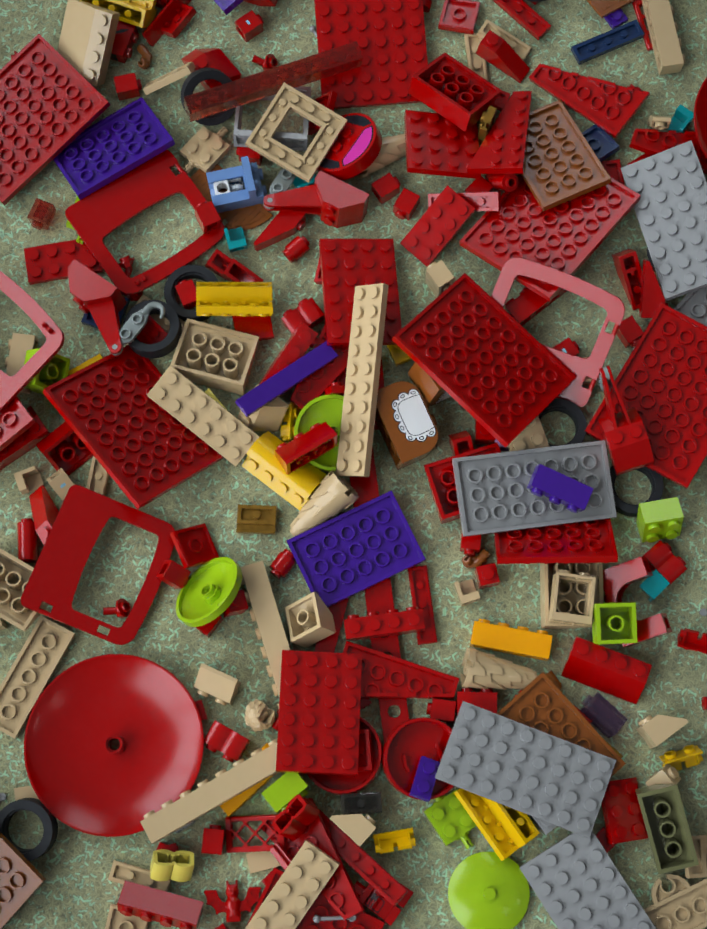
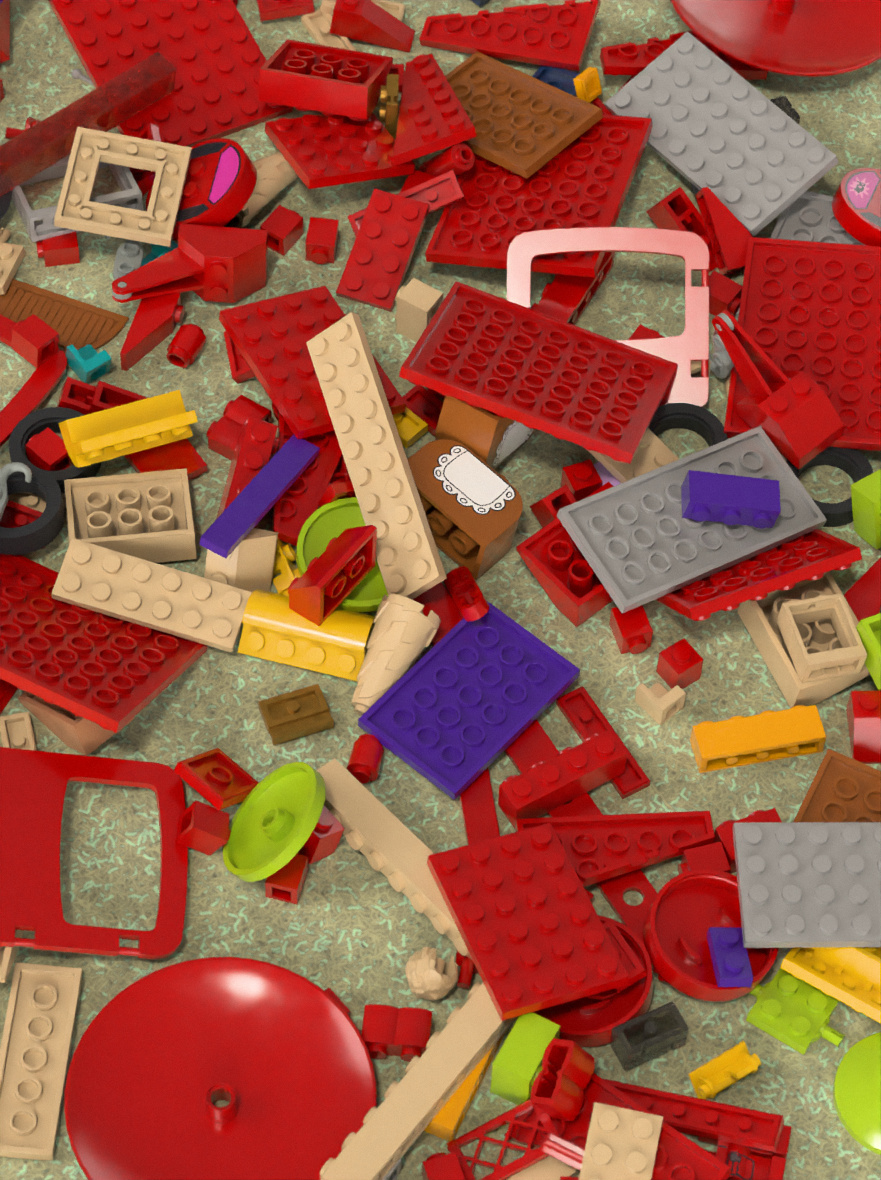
camera: 30 degrees left, 20 degrees down
(120, 609) = (140, 910): red plate -> none
(217, 684) = (344, 951): tan slope -> none
(233, 181) = (61, 290): medium blue brick -> none
(309, 620) = (446, 810): tan slope -> none
(355, 826) = (654, 1063): tan slope -> none
(378, 498) = (466, 594): none -> red beam
(475, 561) = (648, 659): dark orange arm -> none
(487, 671) = (745, 786): tan cone -> none
(615, 152) = (588, 84): none -> light orange tile
(659, 122) = (629, 31): tan slope -> none
(681, 120) = (656, 23): teal panel -> none

